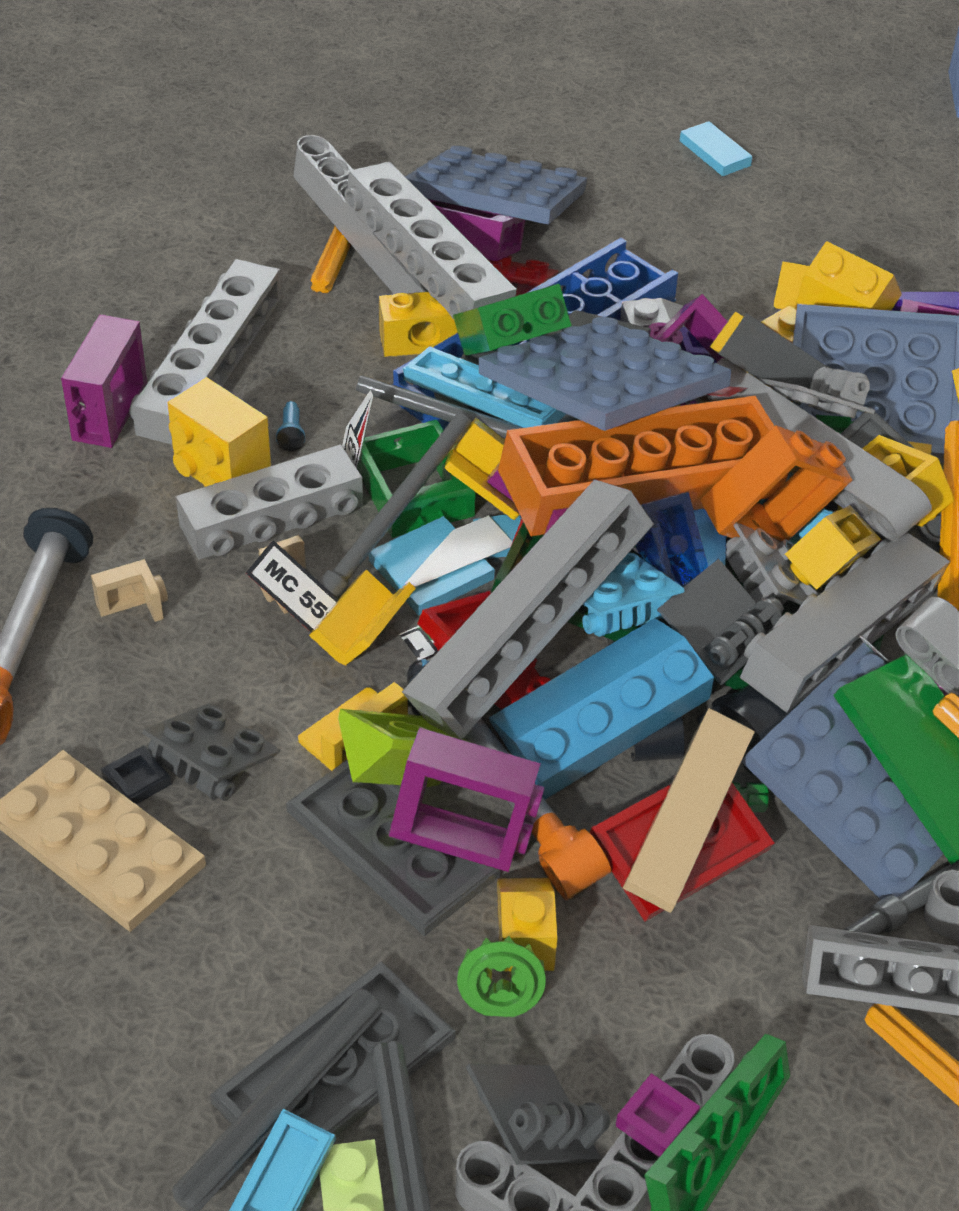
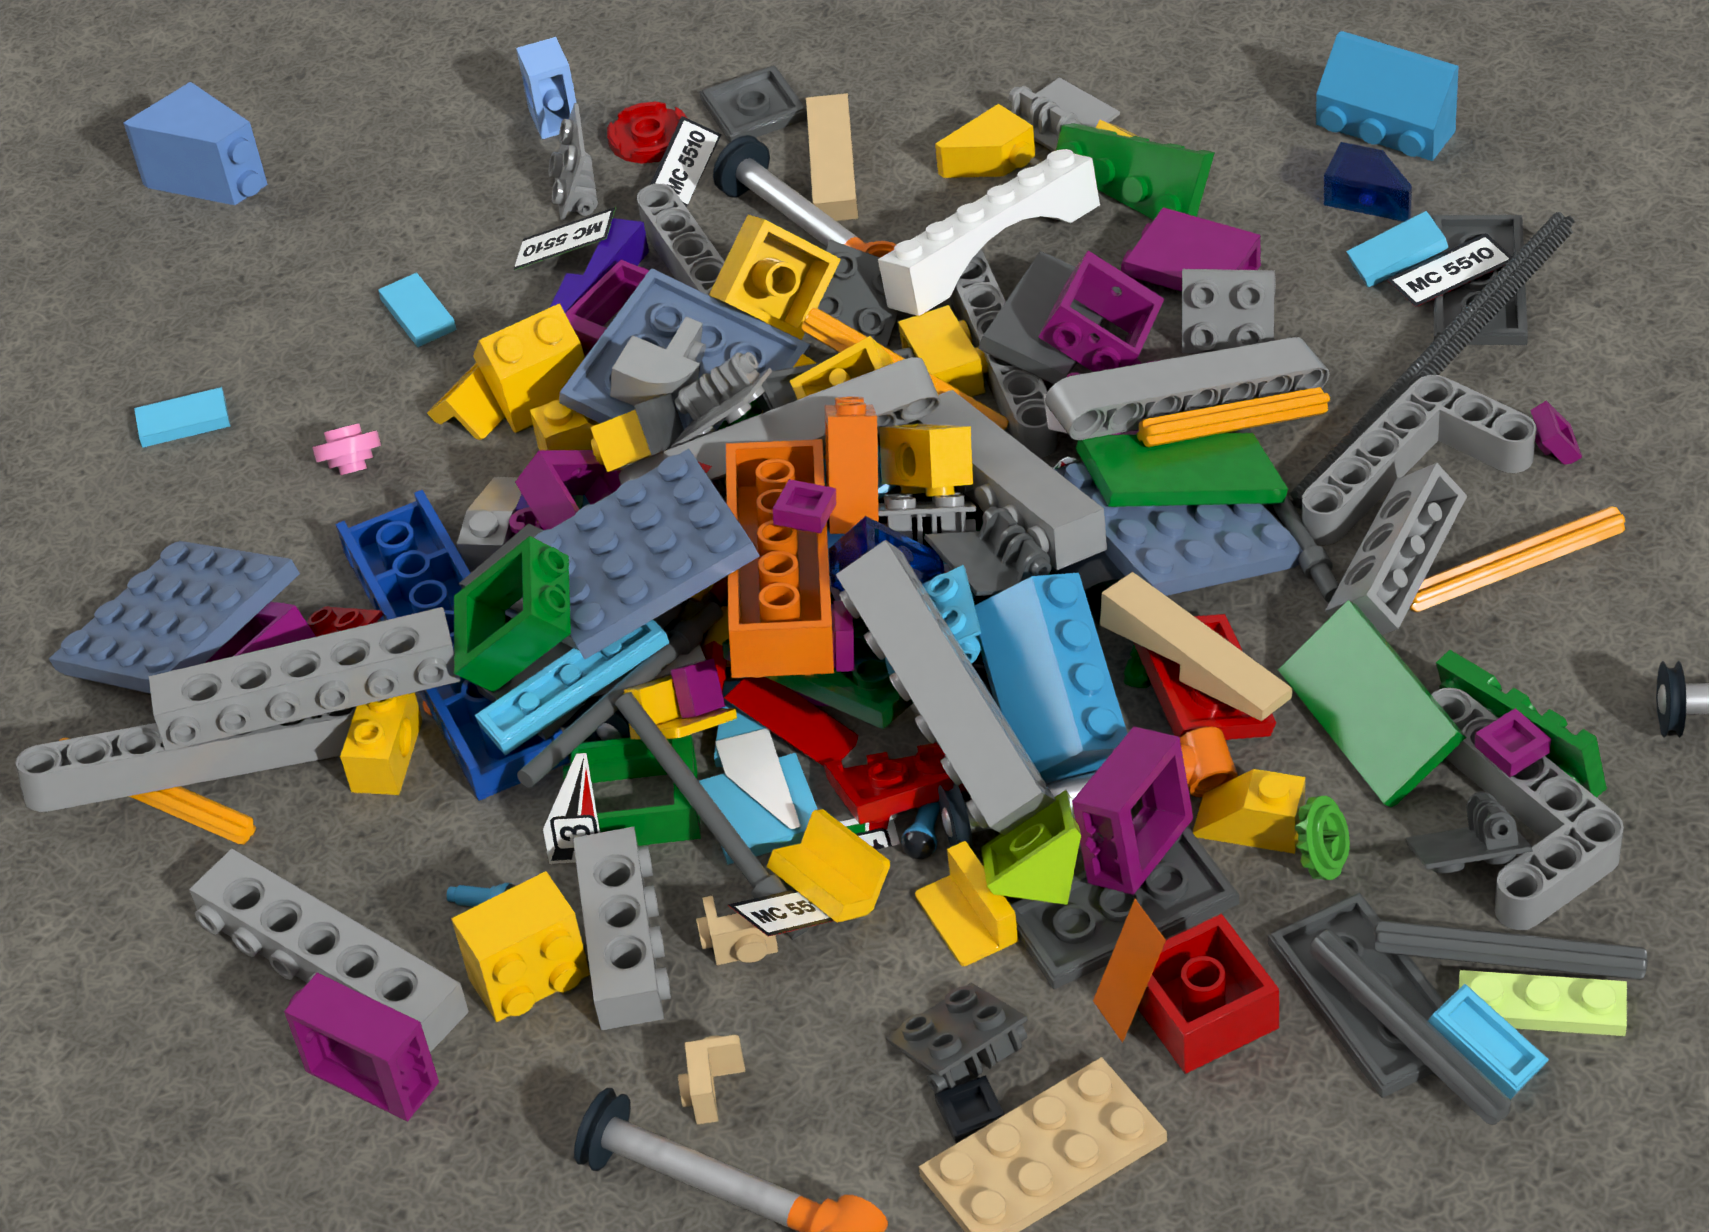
camera: 65 degrees left, 0 degrees up
(272, 835) = (1129, 970): none -> orange sticker
(278, 912) = (1208, 995): none -> red brick
(679, 447) = (804, 506): none -> magenta plate
(695, 990) = (1371, 704): none -> tile
(715, 230) = (347, 448): none -> bright pink plate
(840, 347) = (651, 371): none -> light grey brick
(895, 234) = (417, 309): none -> medium azure tile

